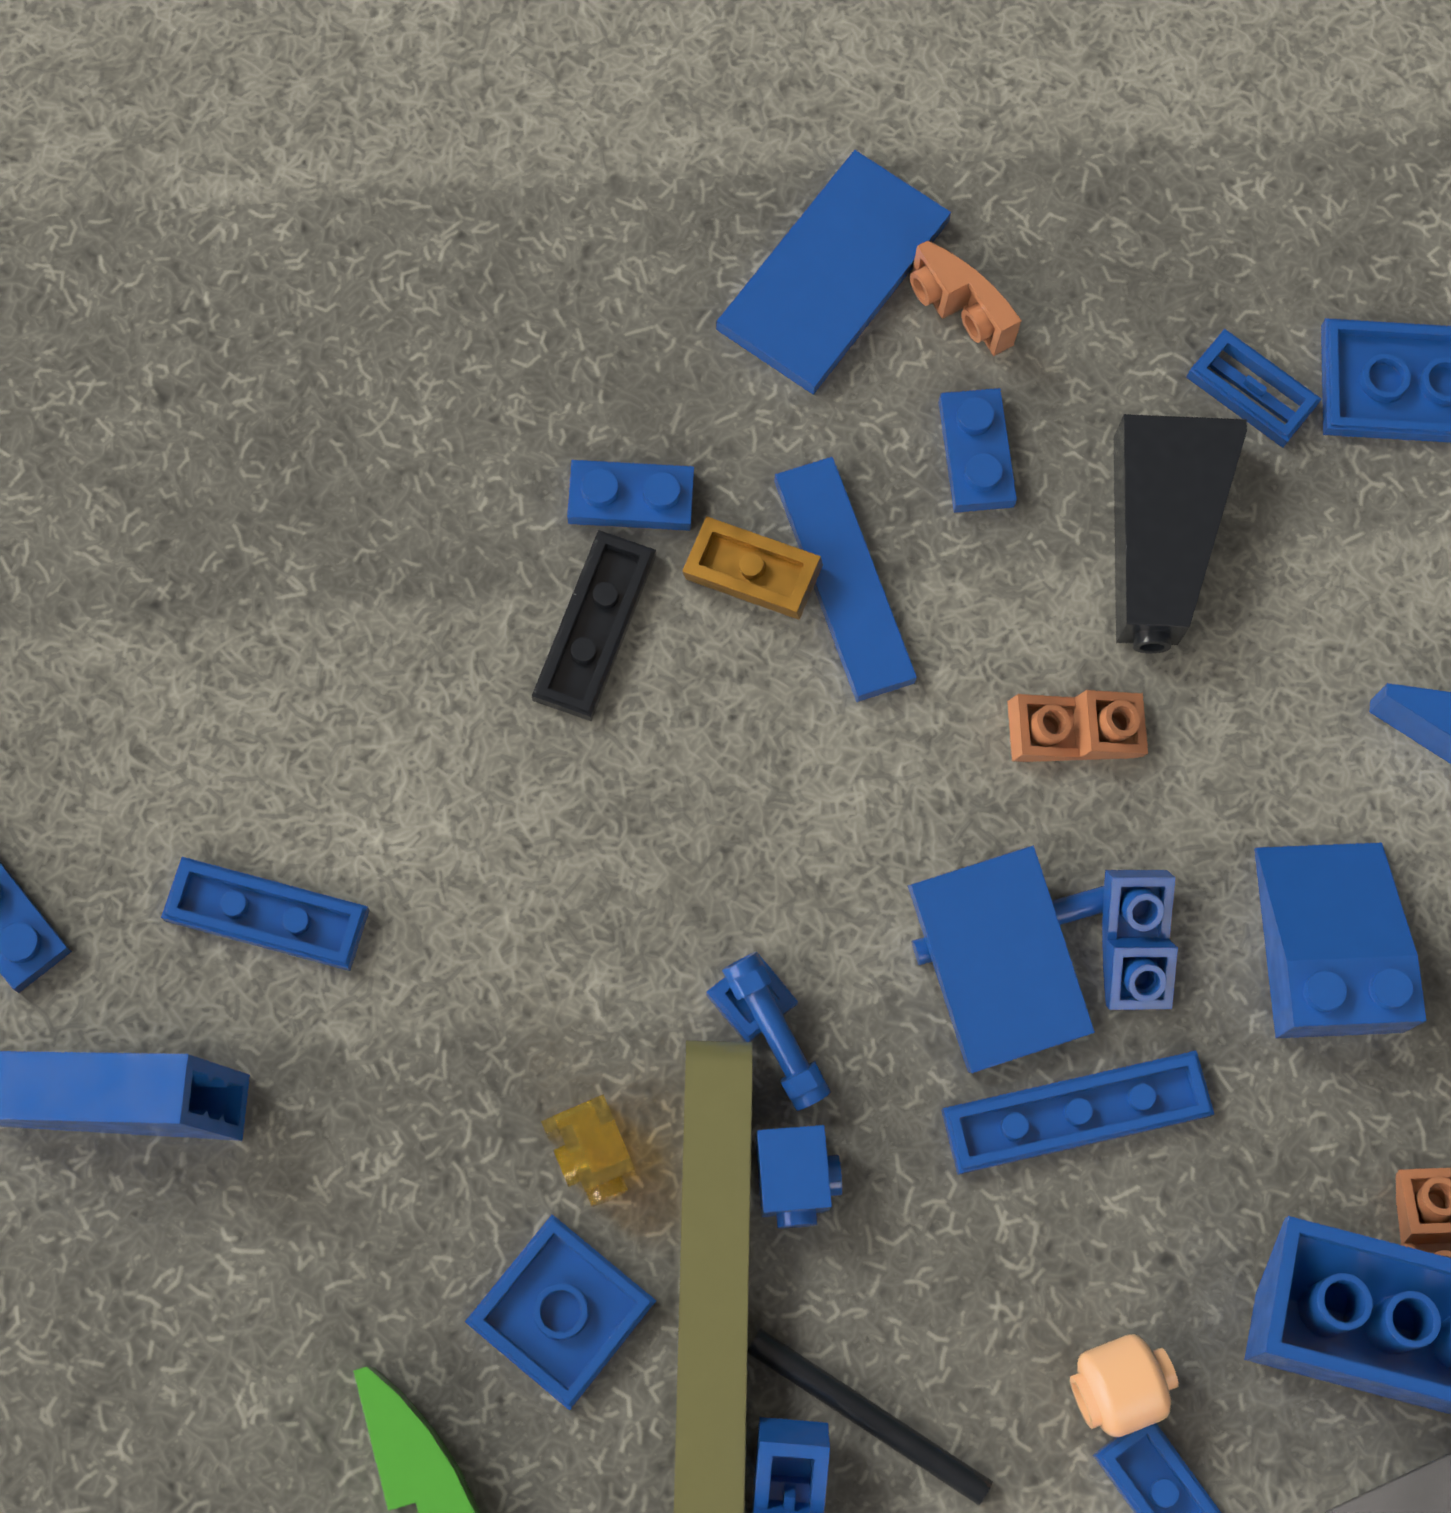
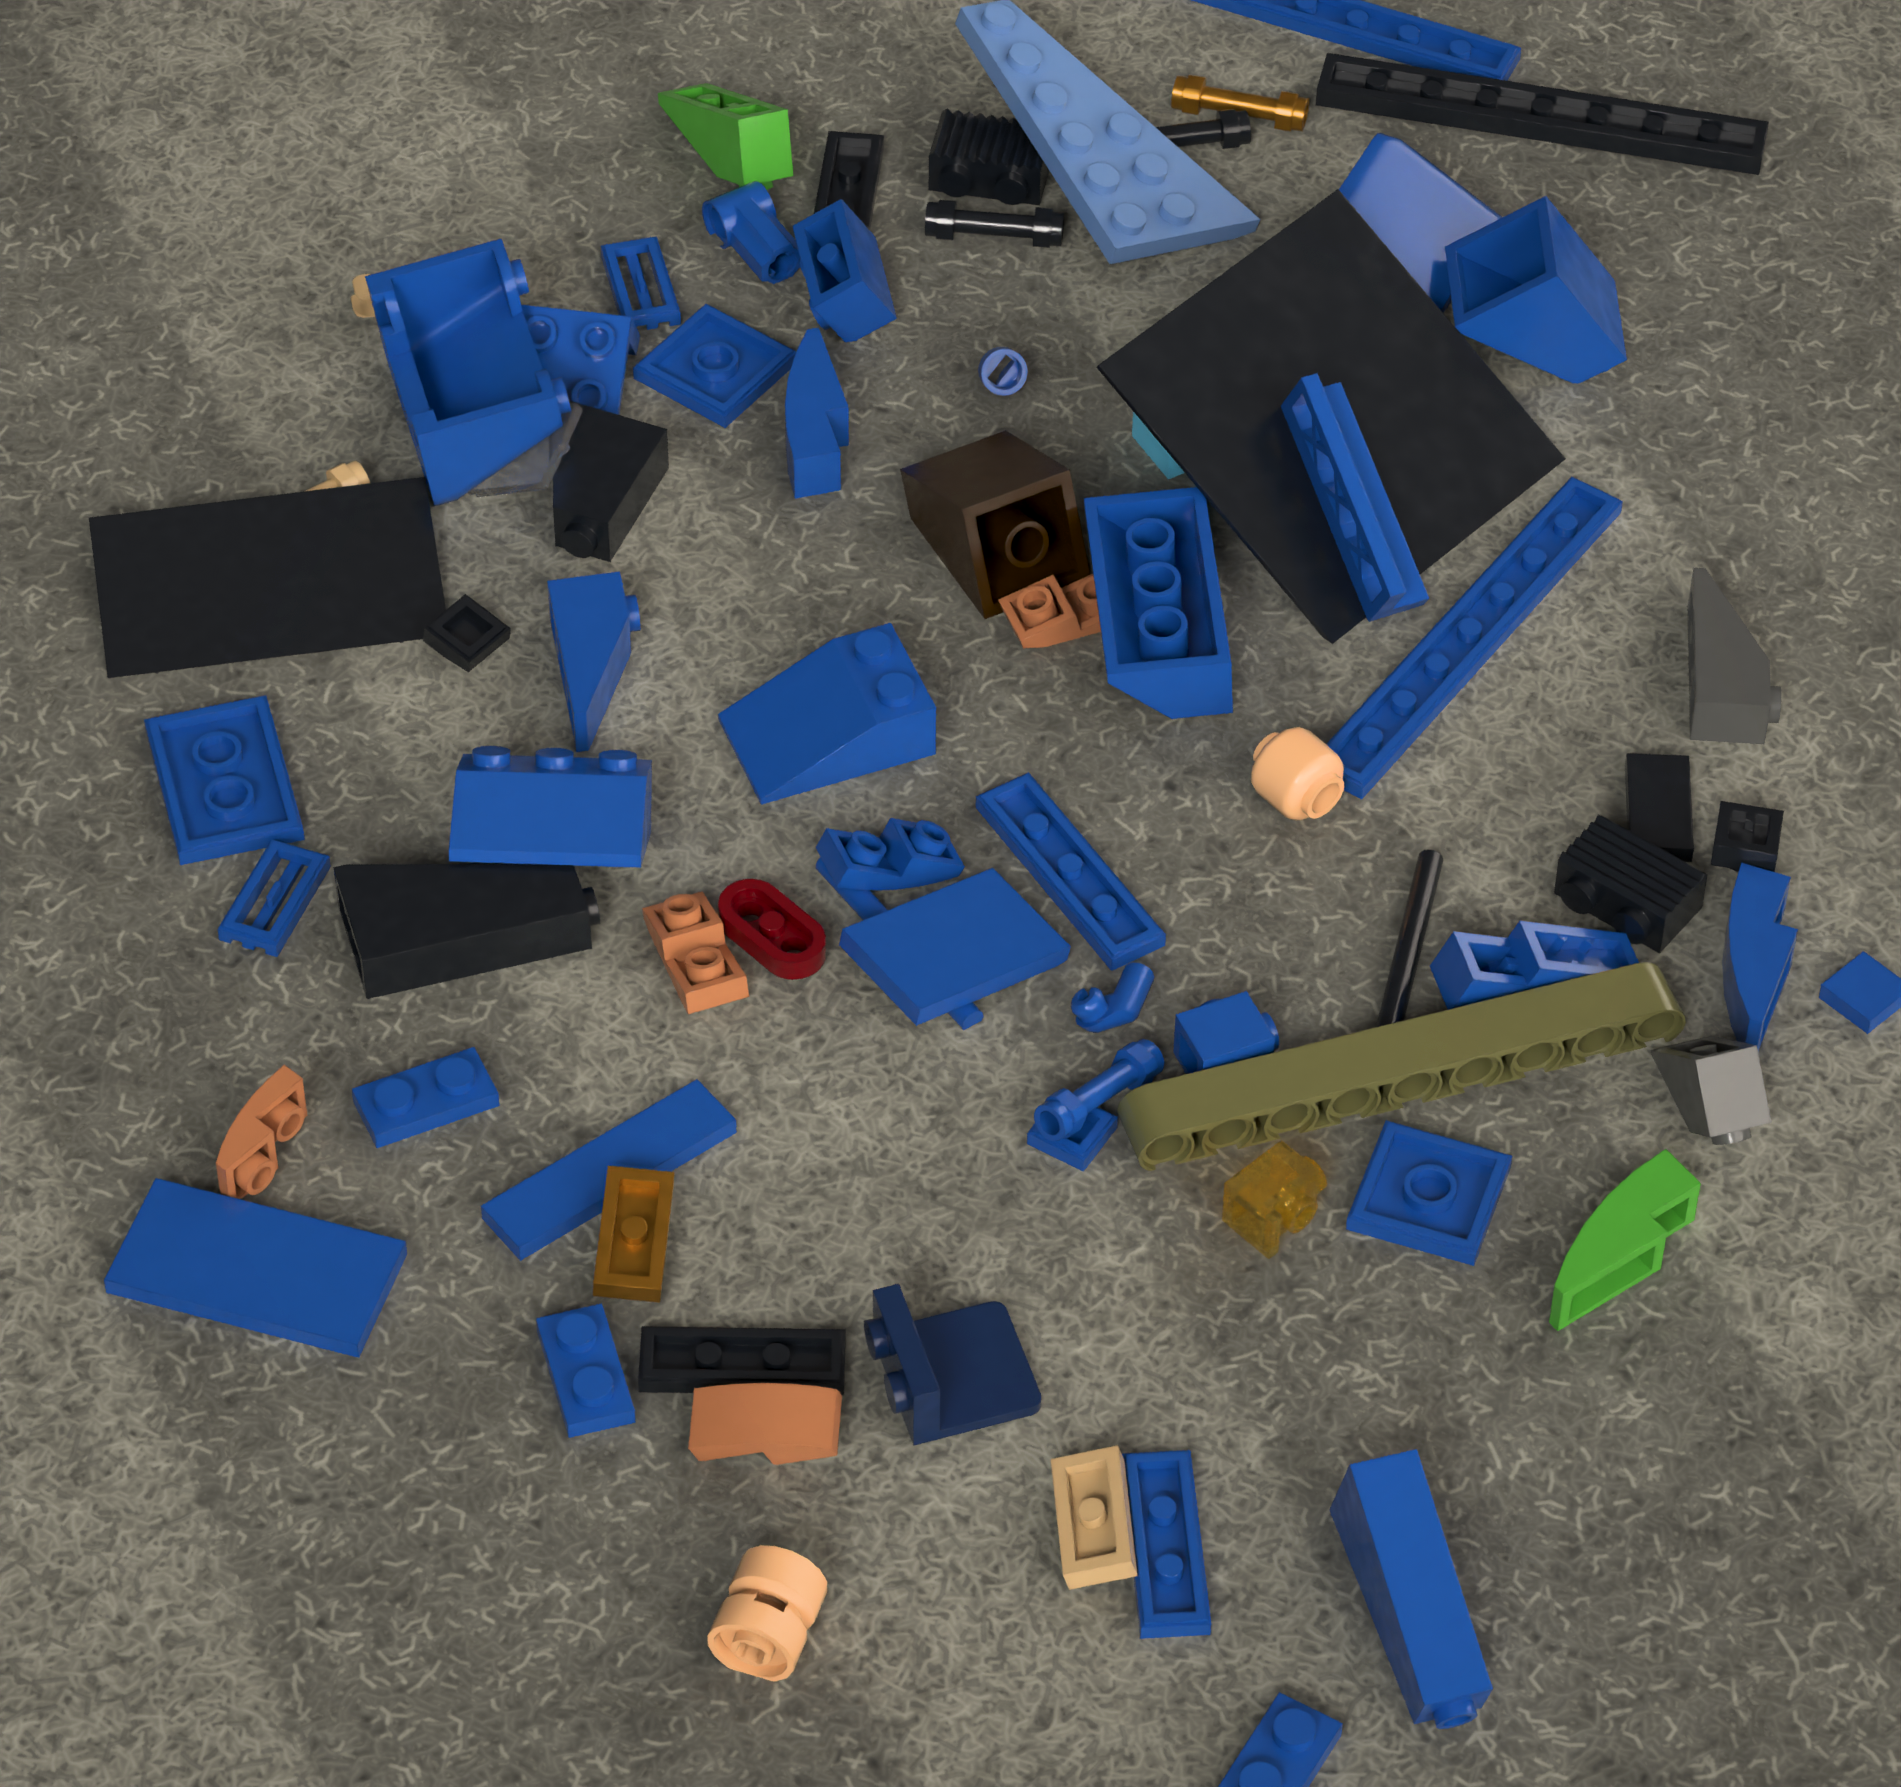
camera: 105 degrees left, 25 degrees down
(298, 544) = (767, 1612): none -> light nougat wheel
(304, 854) = (1093, 1517): none -> tan plate
(509, 615) = (771, 1418): none -> nougat slope
(511, 787) = (951, 1367): none -> dark blue bracket
(886, 1092) = (1103, 1012): none -> blue arm
(1076, 800) = (778, 930): none -> dark red plate
(1262, 628) = (551, 808): none -> blue slope

